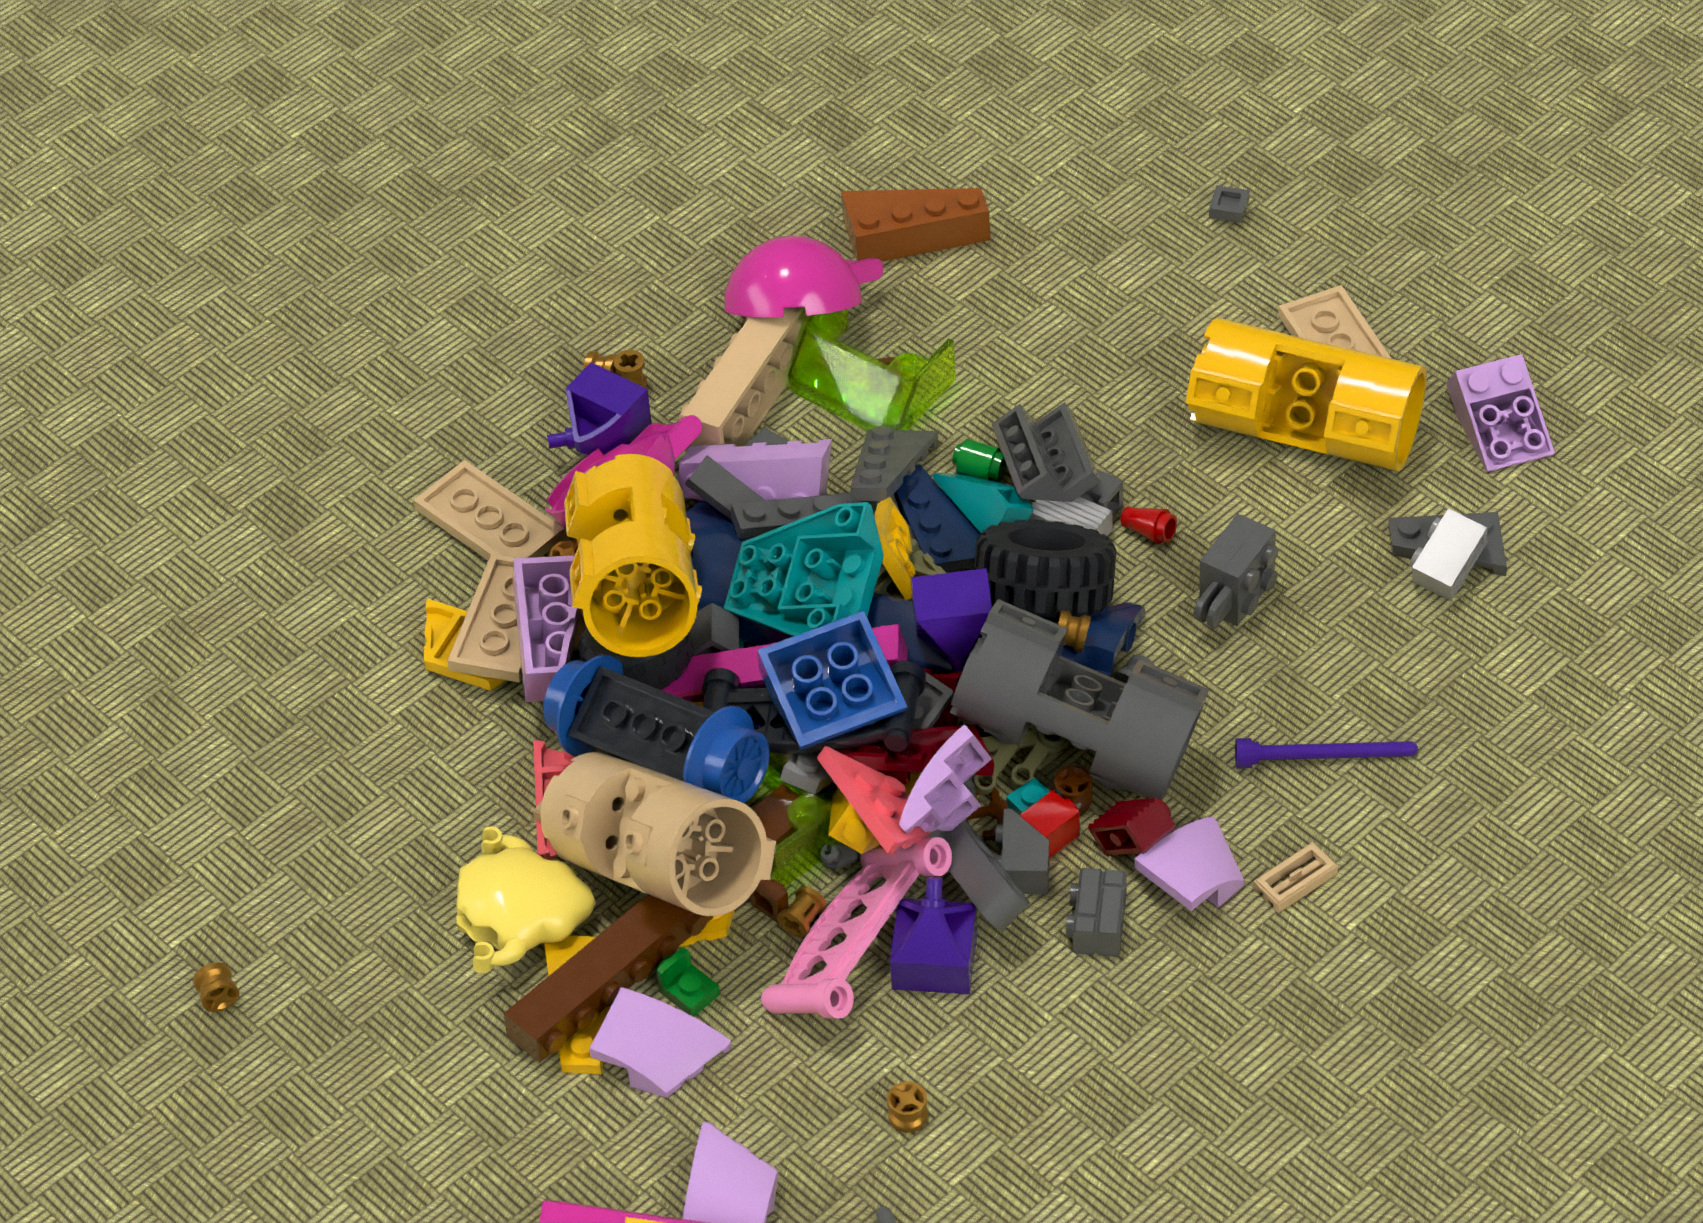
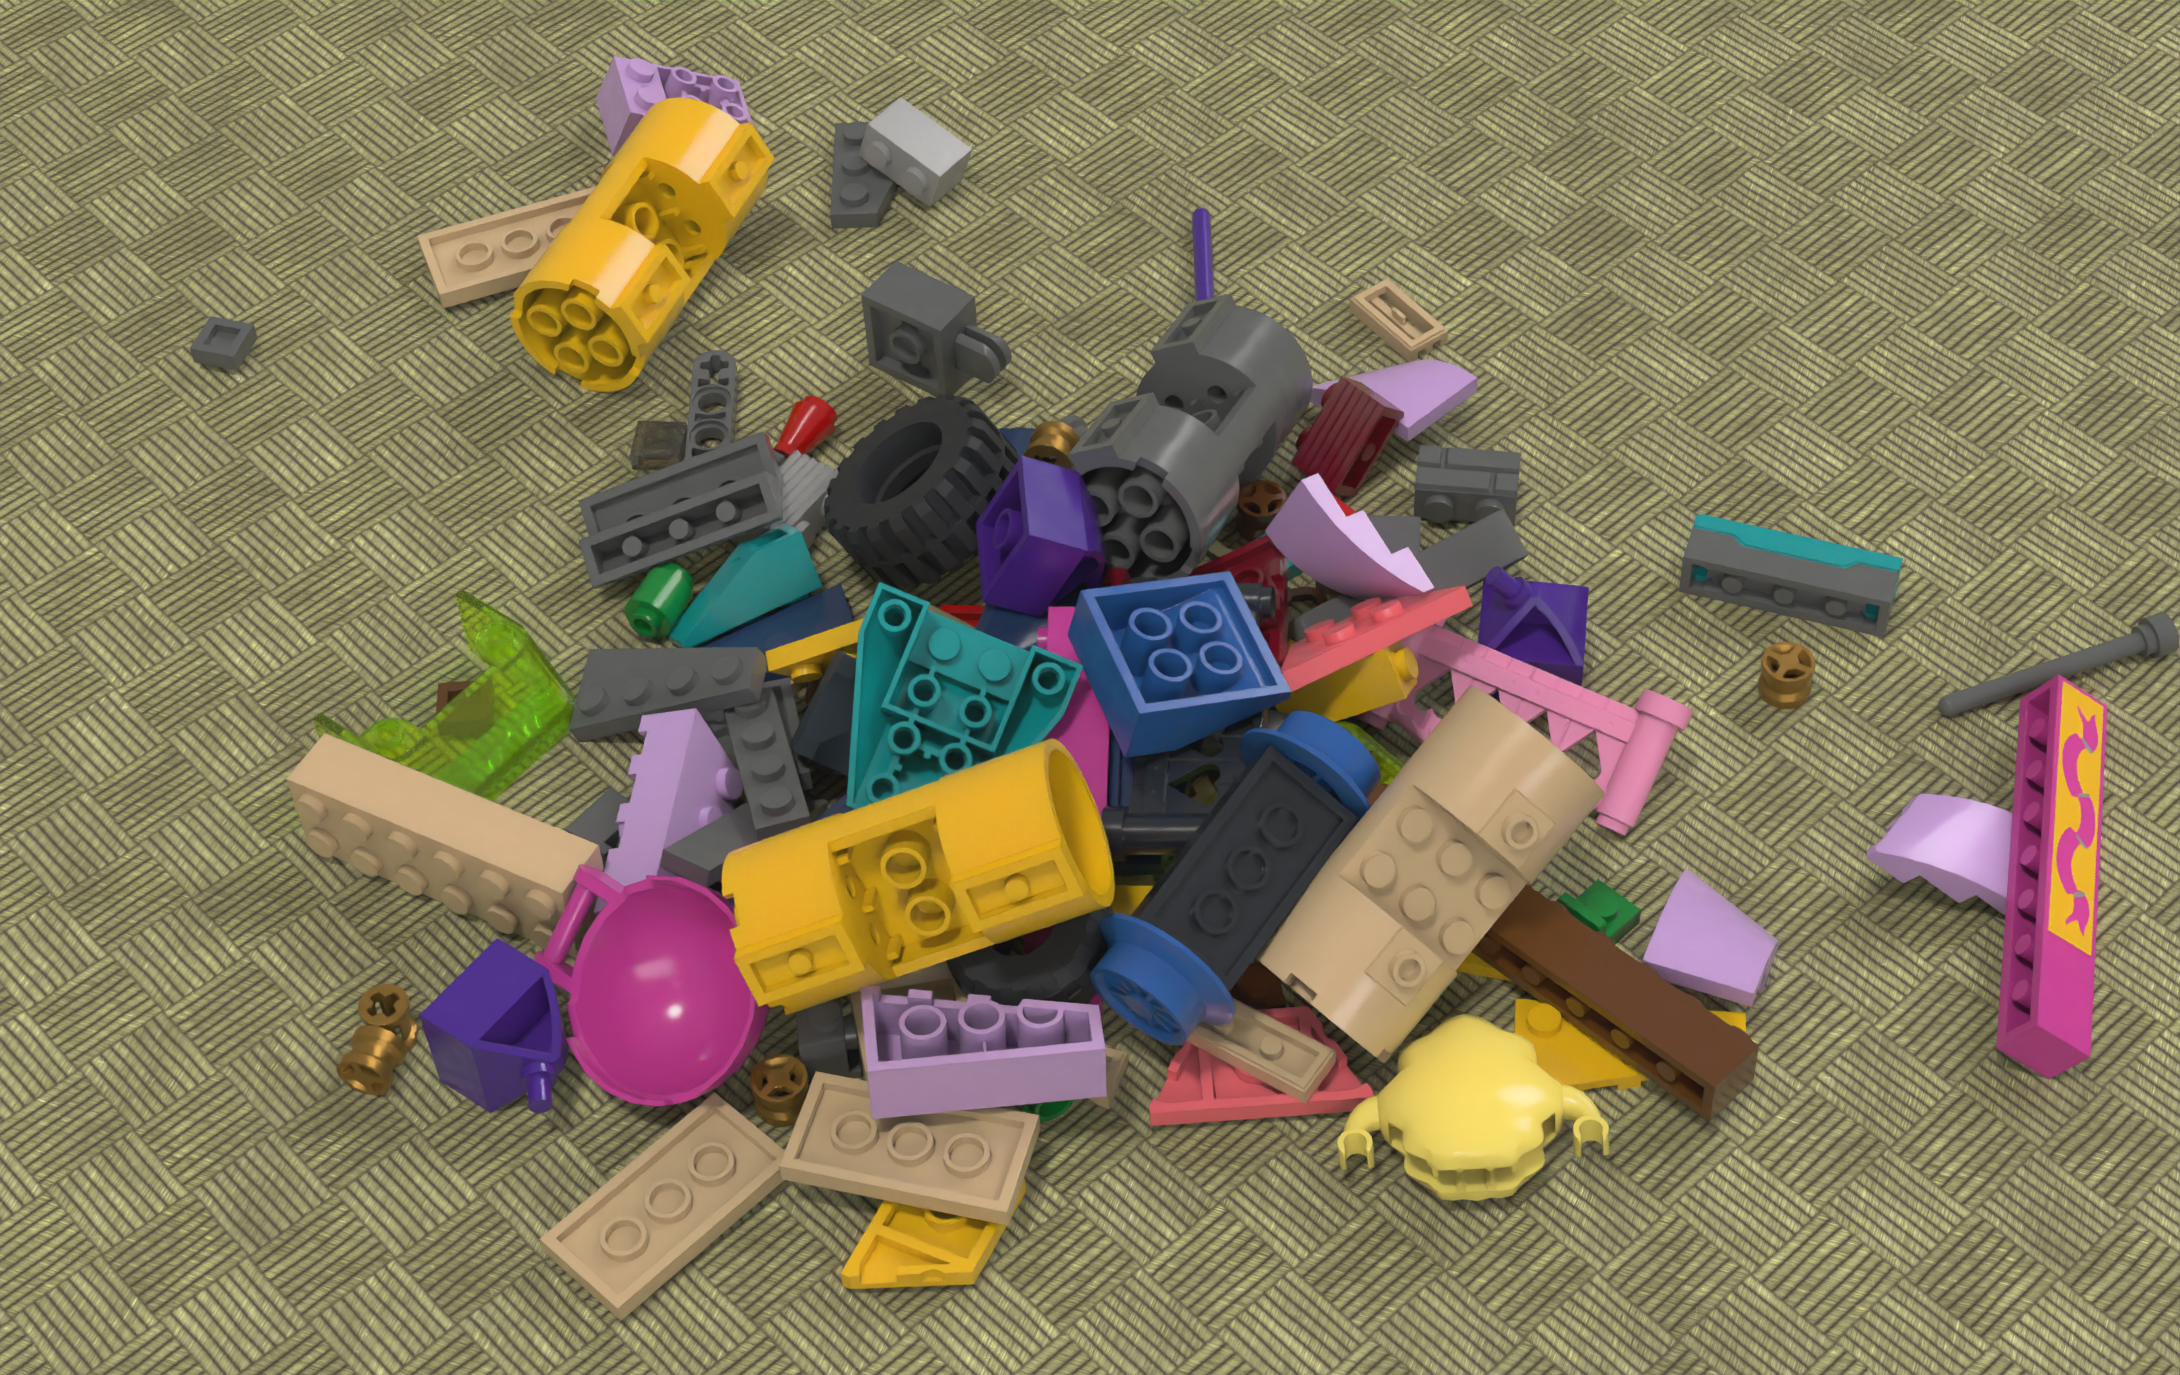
camera: 90 degrees left, 0 degrees up
(796, 274) = (298, 776): dark pink windscreen -> none
(913, 221) = (157, 681): dark orange wedge -> none
(1008, 1114) = (1790, 575): none -> dark grey piece
(1133, 445) = (658, 444): none -> clear smoke plate
(1160, 468) = (716, 424): none -> dark grey beam

